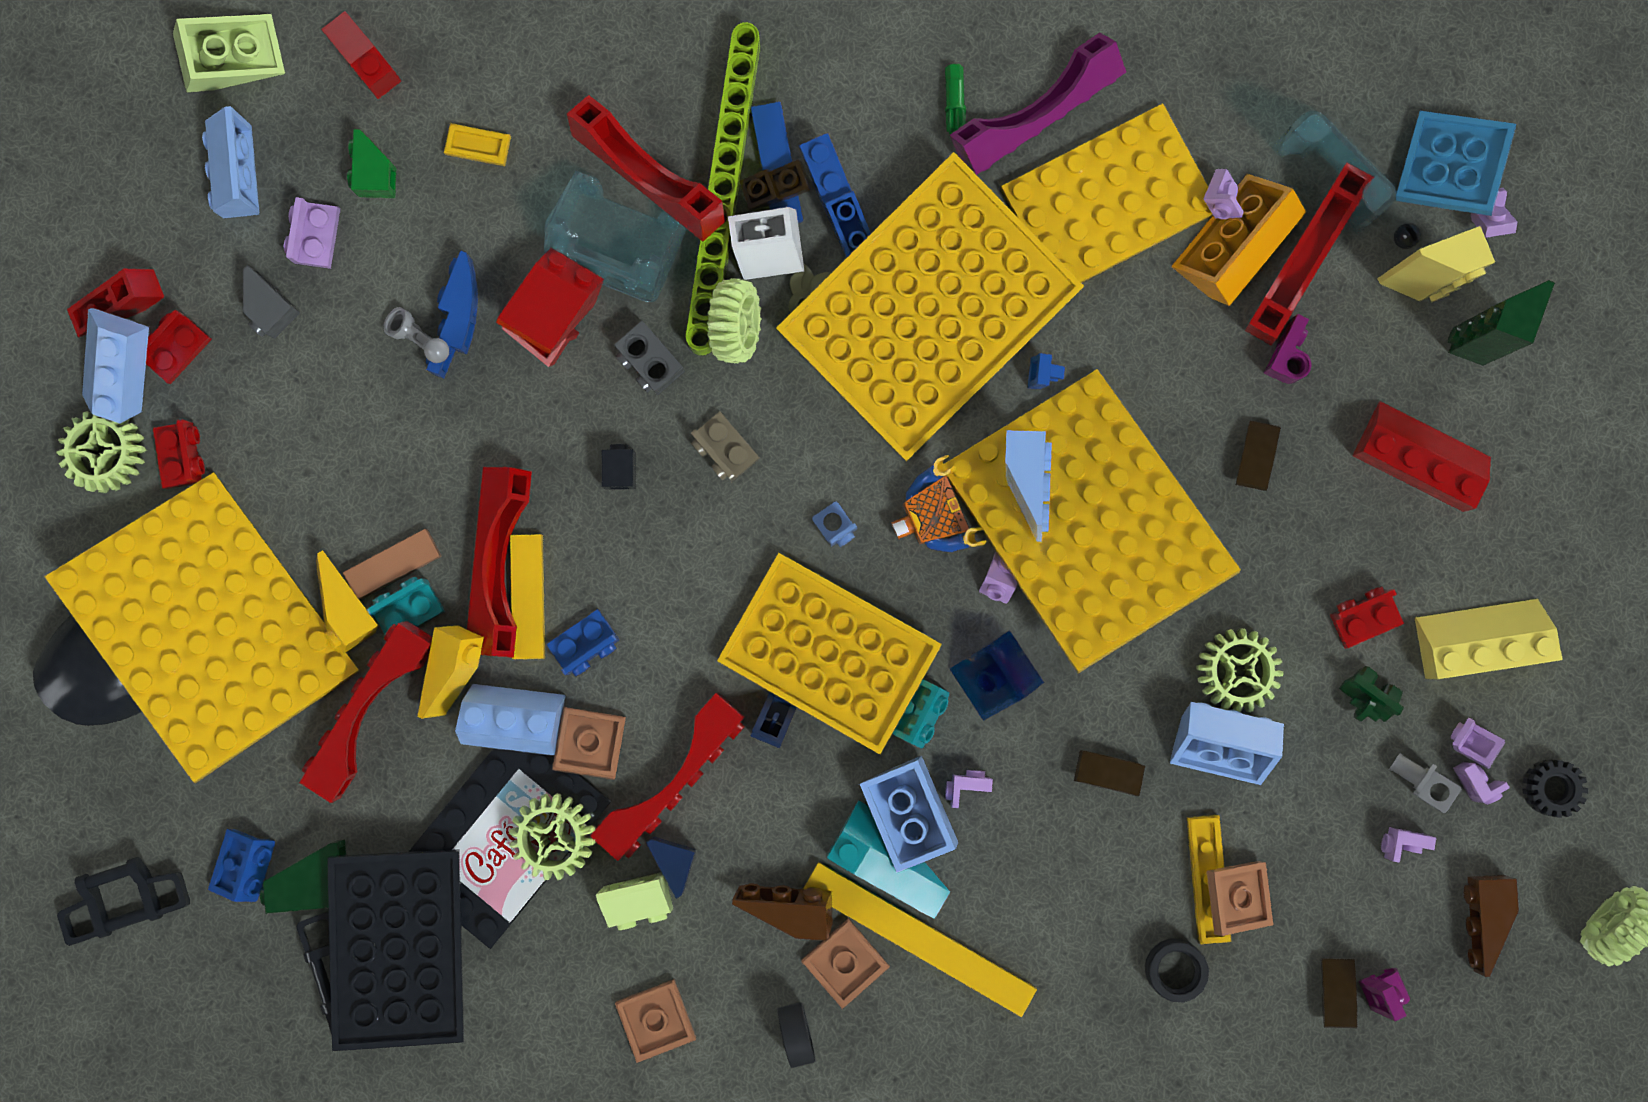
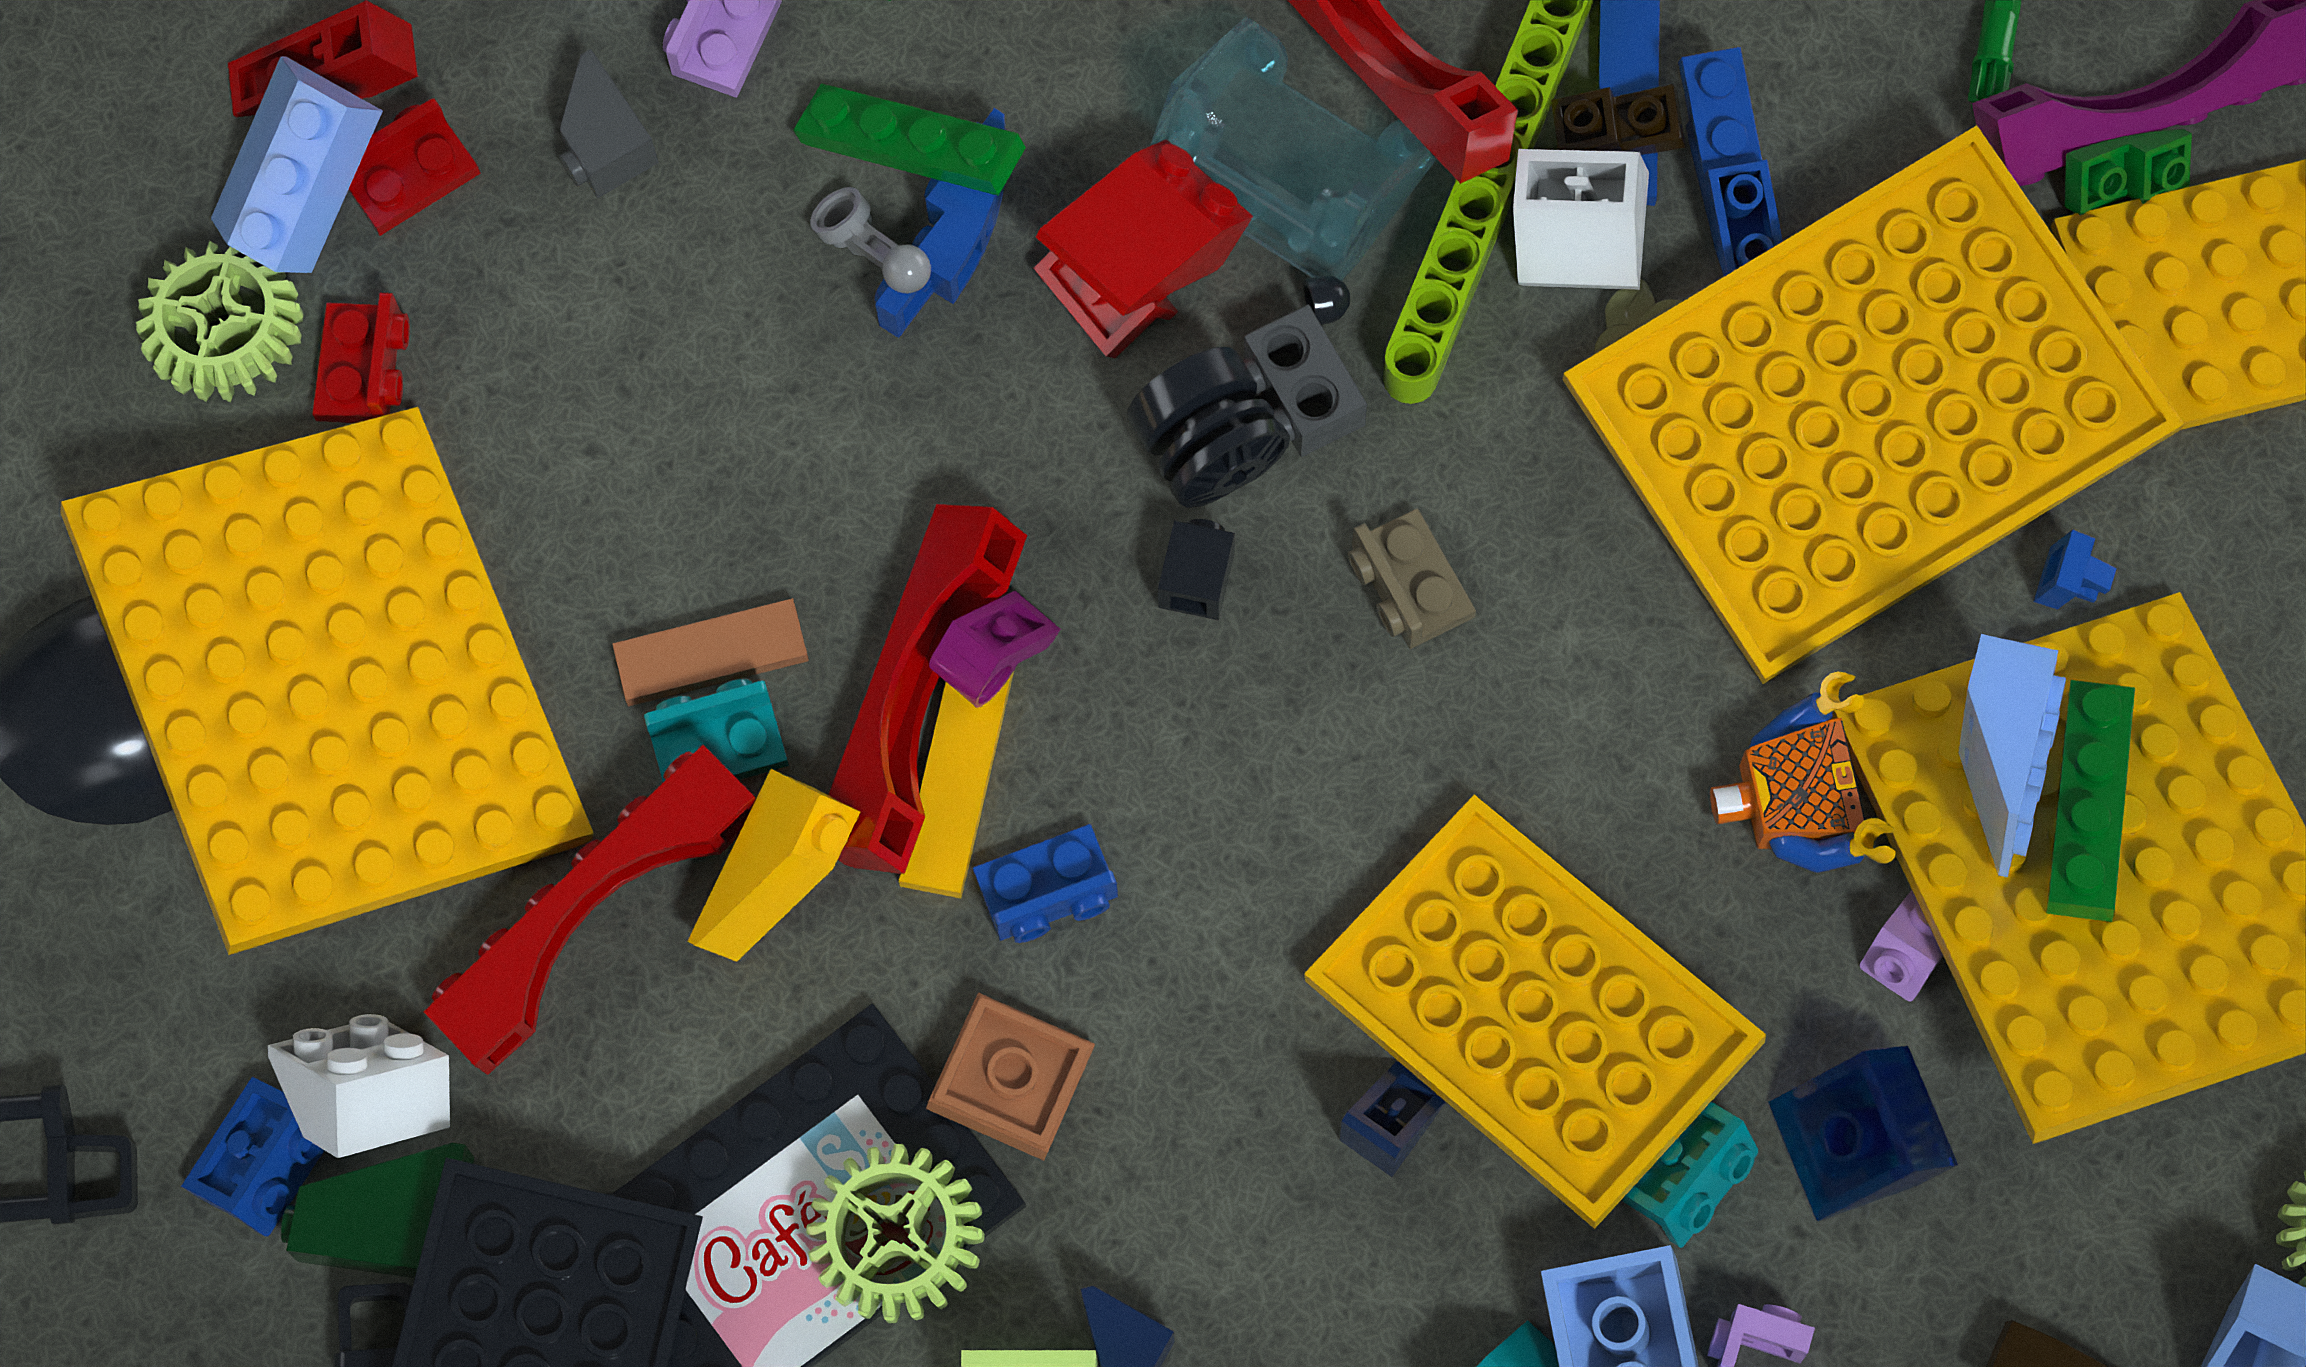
camera: 15 degrees right, 15 degrees down
(279, 825) = (362, 1084): none -> white slope
(344, 614) = (596, 718): yellow slope -> none
(422, 276) = (910, 139): none -> green plate
(510, 719) = (867, 993): light blue slope -> none
(527, 532) = (988, 644): none -> magenta plate
(601, 391) = (1207, 426): none -> black wheel
(624, 826) = (1048, 1253): red arch -> none
(651, 311) = (1326, 297): none -> black hinge
(734, 320) = (1486, 341): yellowish green gear -> none
(843, 534) = (1607, 790): medium blue bracket -> none
(1032, 150) = (2127, 167): none -> green slope
(1074, 493) = (2091, 801): none -> green plate

